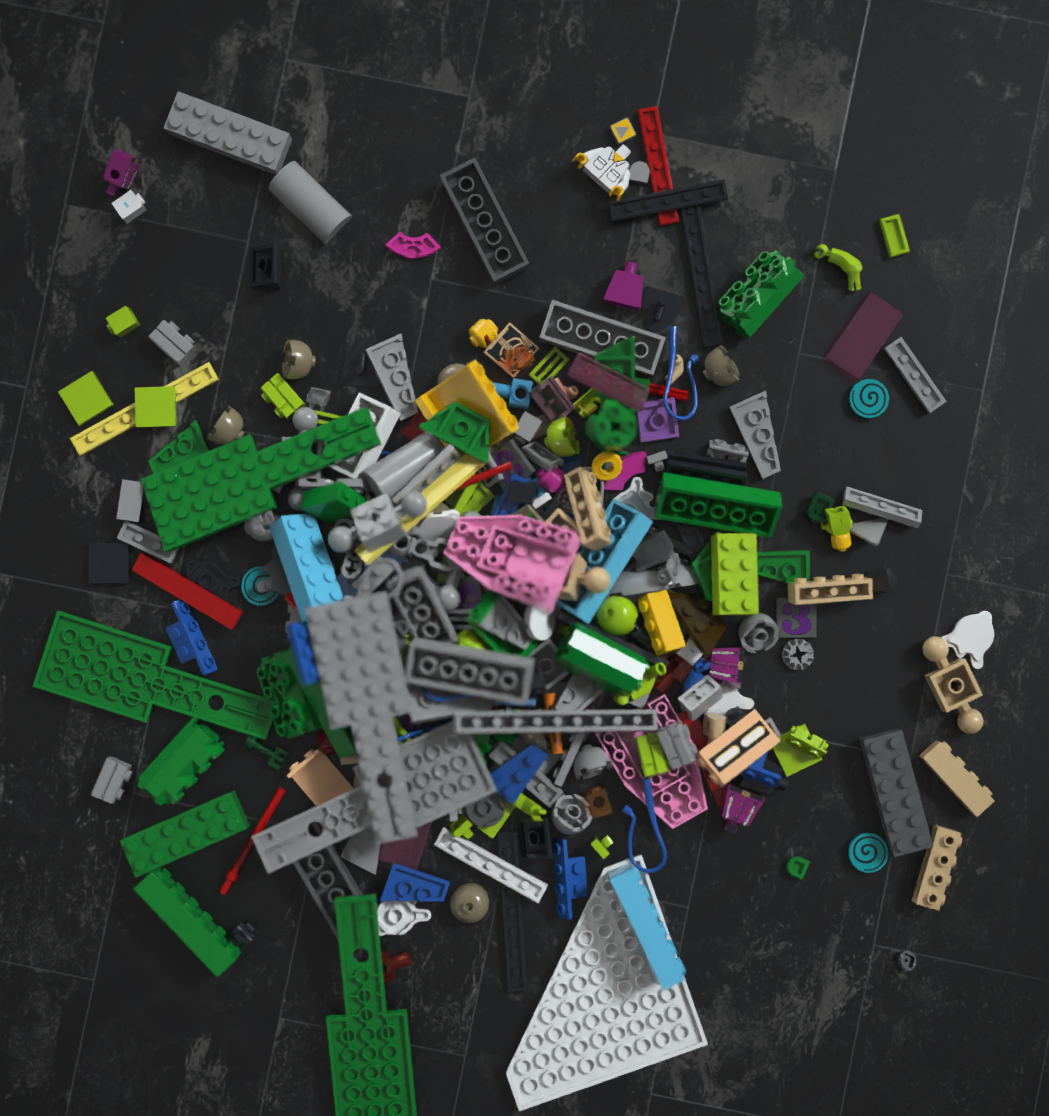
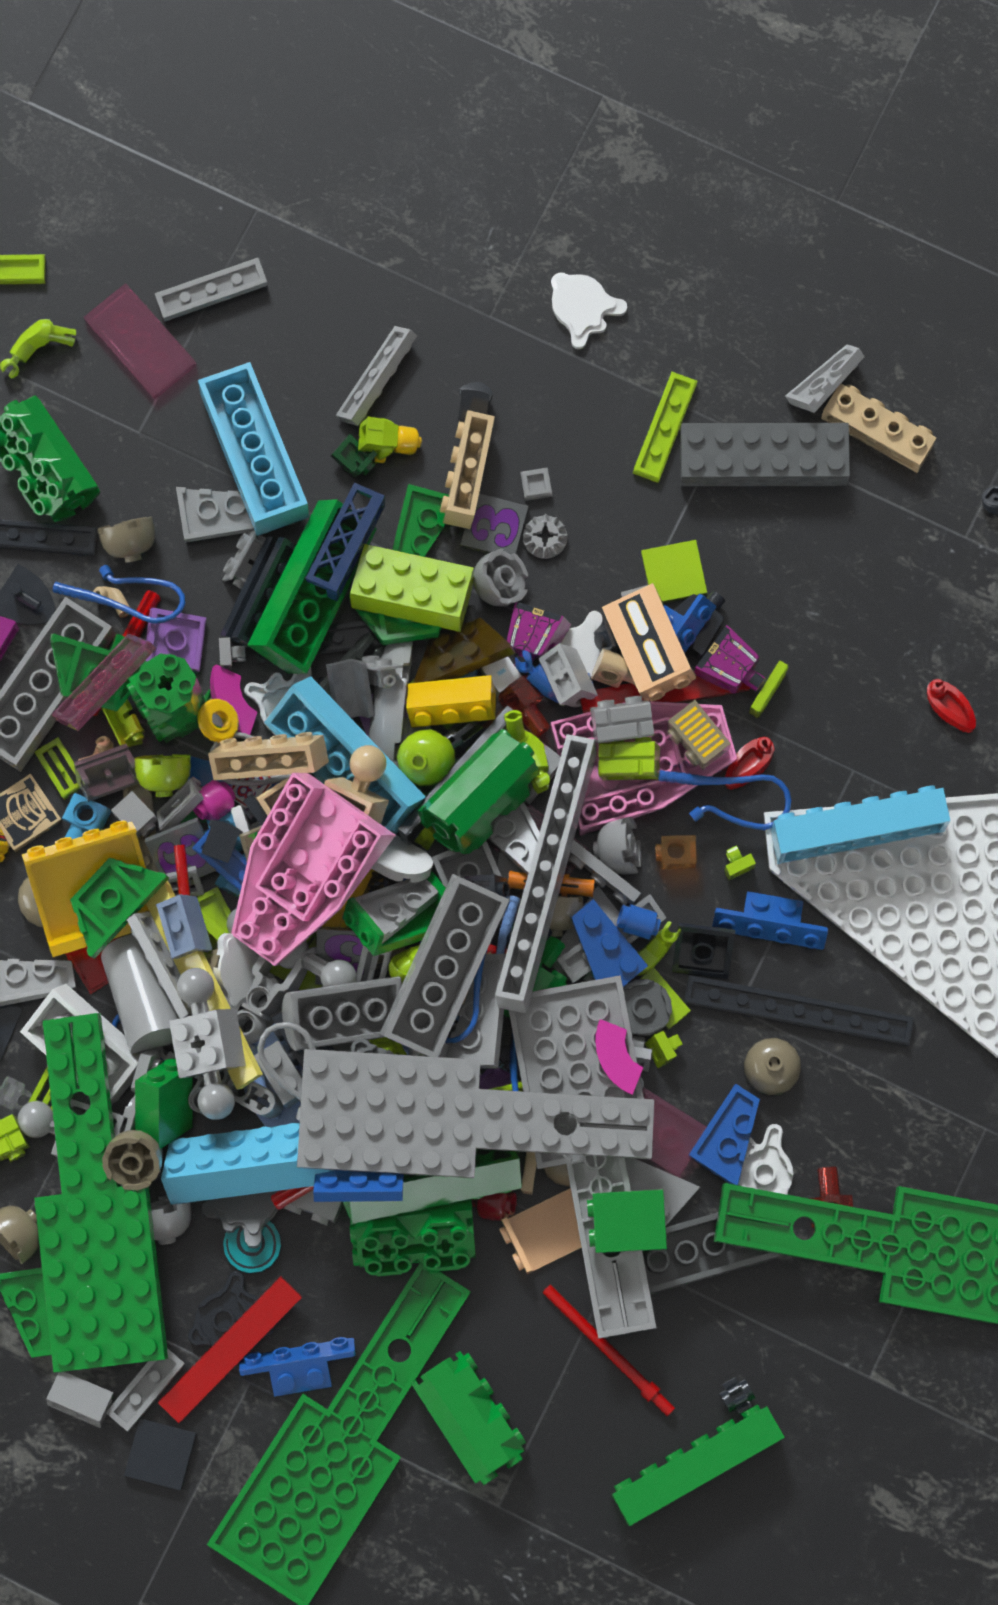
camera: 70 degrees left, 10 degrees down
(111, 780) = (469, 1528): light grey brick -> none
(184, 833) = (572, 1441): green brick -> none
(274, 755) = (469, 1314): dark green hinge -> none
(288, 496) = (135, 1159): none -> dark tan cylinder
(331, 838) = (627, 1221): none -> green brick
(439, 801) = (615, 1058): none -> dark pink tile
(455, 484) = (183, 926): none -> sand blue panel
(491, 865) = (726, 1022): white tile -> none
(514, 366) = (39, 814): clear orange brick -> none
(540, 791) = (638, 921): none -> blue brick
(571, 814) = (683, 892): light grey cylinder -> none
(676, 838) = (751, 760): none -> red arm
(680, 799) = (697, 735): none -> dark tan brick
(729, 837) = (768, 689): none -> lime tile
(750, 964) = (951, 705): none -> red arm
(758, 528) = (354, 548): none -> dark blue fence
(797, 866) = (834, 610): green tile -> none
(805, 437) = (253, 449): none -> medium azure brick
(814, 747) = (675, 544): lime hinge -> none
(833, 638) = (536, 484): none -> light grey tile
(868, 398) = (224, 351): teal tile -> none
(868, 852) = (837, 512): teal tile -> none
(870, 530) = (402, 398): light grey piece -> none
(898, 717) = (665, 427): none -> lime tile
(957, 778) = (765, 371): tan brick -> none
(958, 820) = (822, 382): none -> light grey wing
(965, 689) = (643, 326): tan brick -> none

